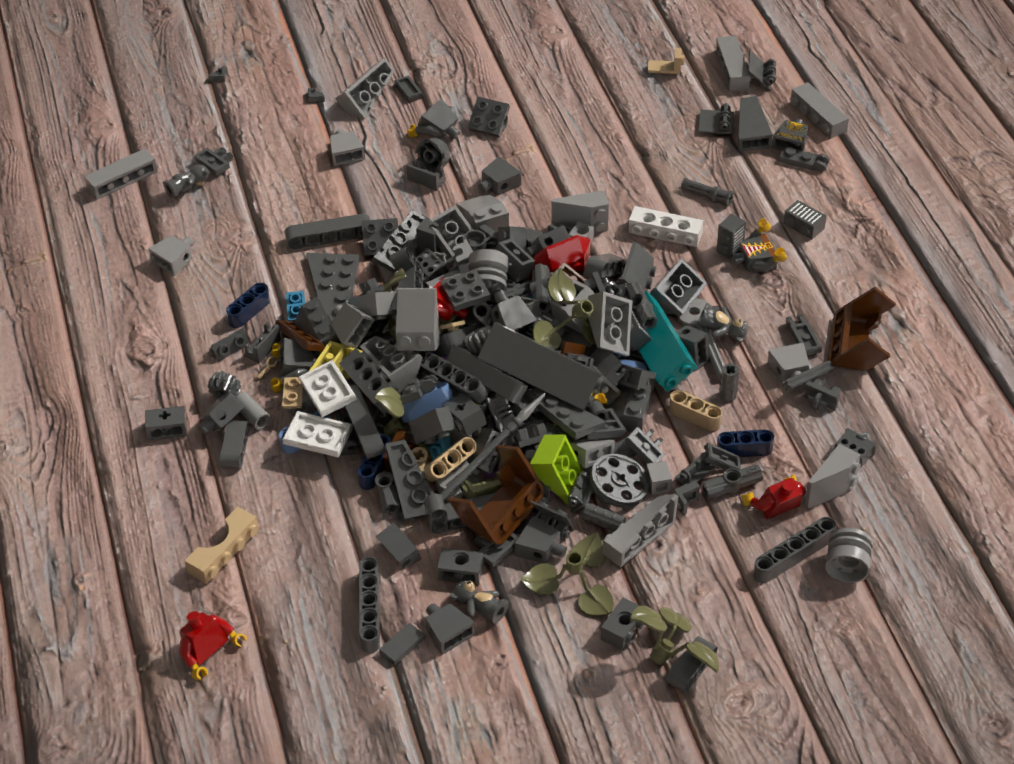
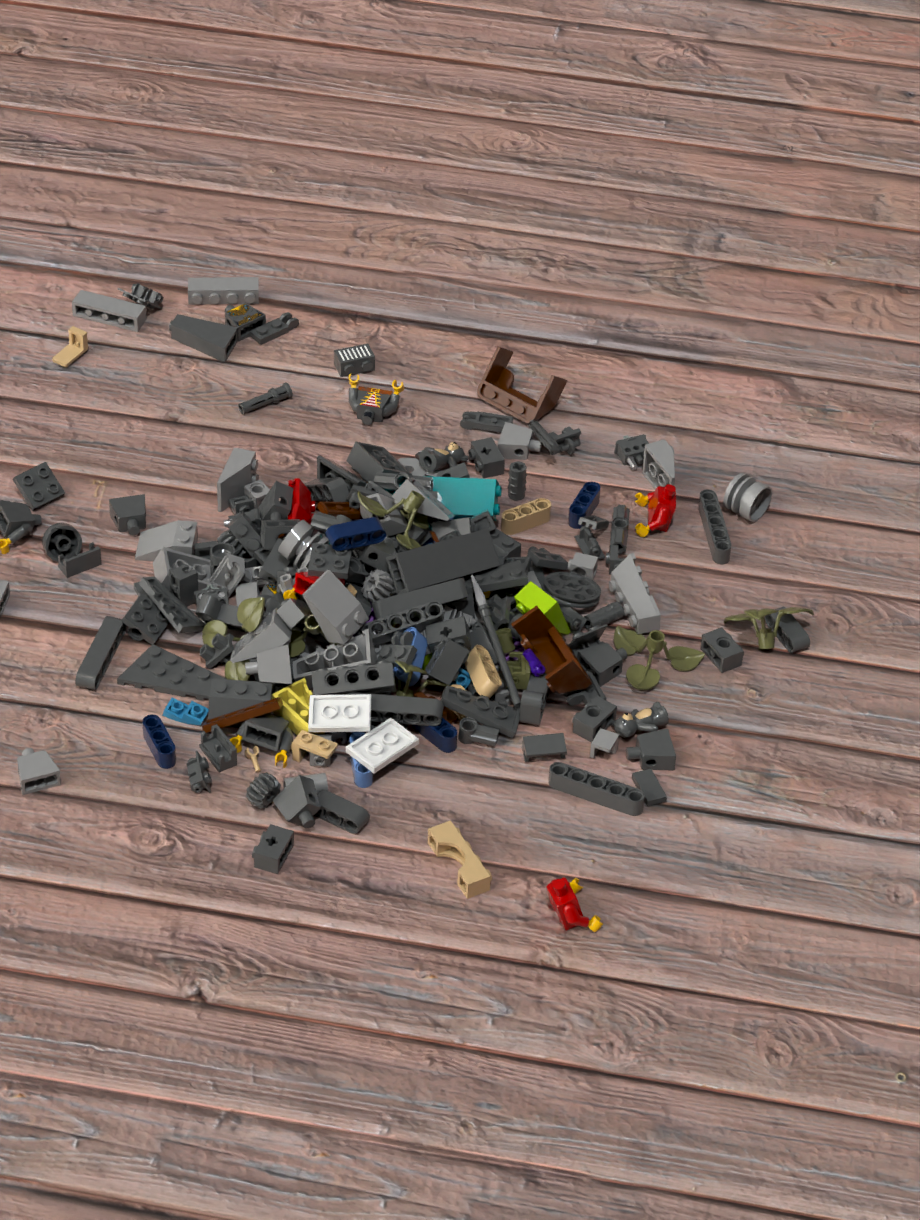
camera: 65 degrees left, 5 degrees down
(430, 583) = (604, 741): none -> light grey panel
(488, 490) = (536, 666): none -> dark purple arm
(495, 286) = (356, 534): none -> dark blue beam
(665, 226) = (290, 441): white brick -> none
(717, 121) = (177, 354): dark grey hinge -> none
(730, 235) = (345, 406): dark grey brick -> none
(752, 353) = (487, 457): none -> dark grey brick

